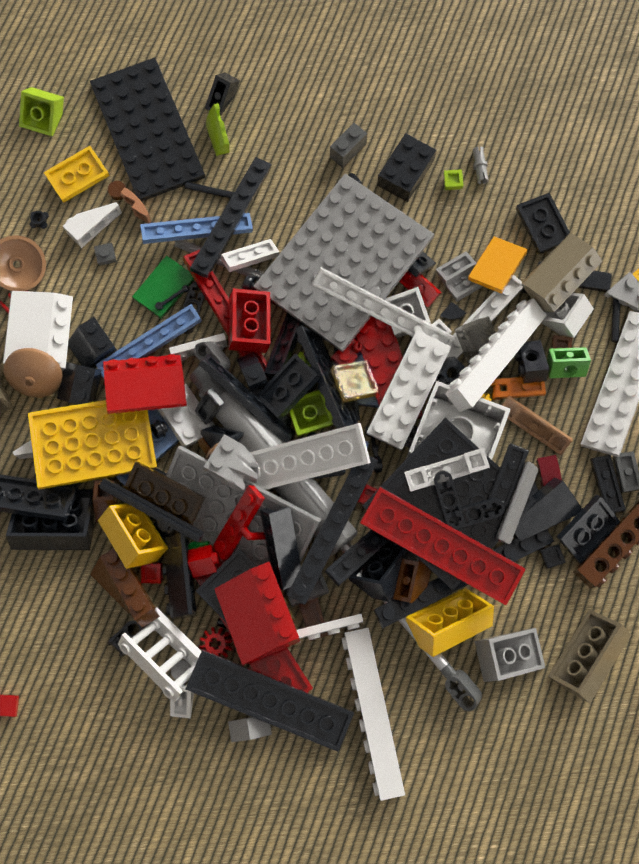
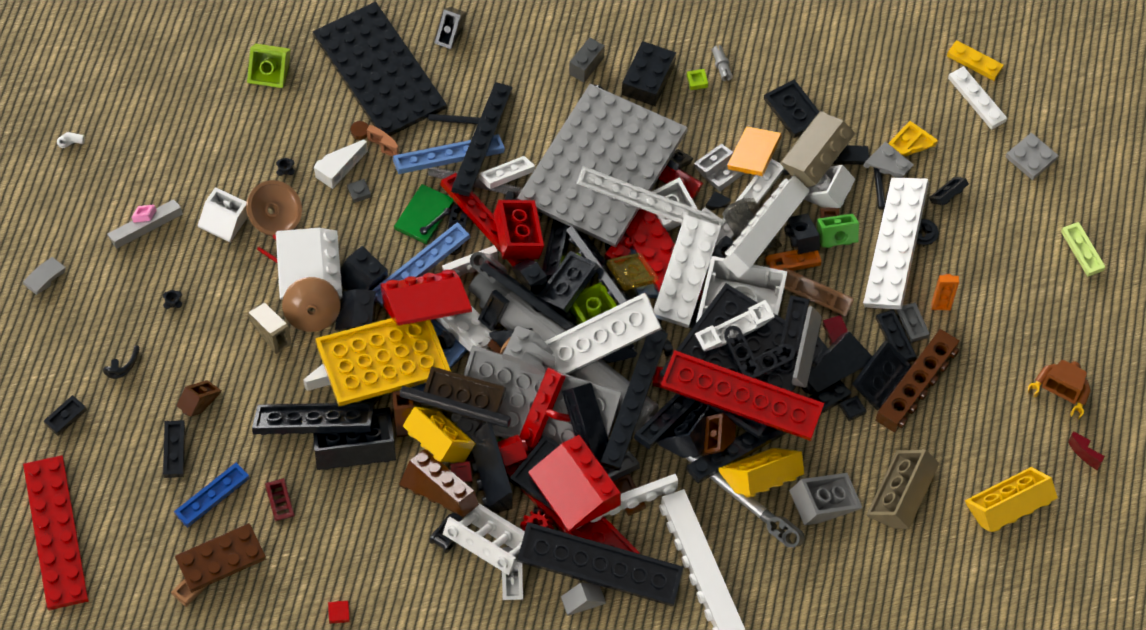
camera: 10 degrees left, 15 degrees down
(76, 174) = (316, 120): yellow plate -> none
(217, 131) = (452, 62): lime slope -> none

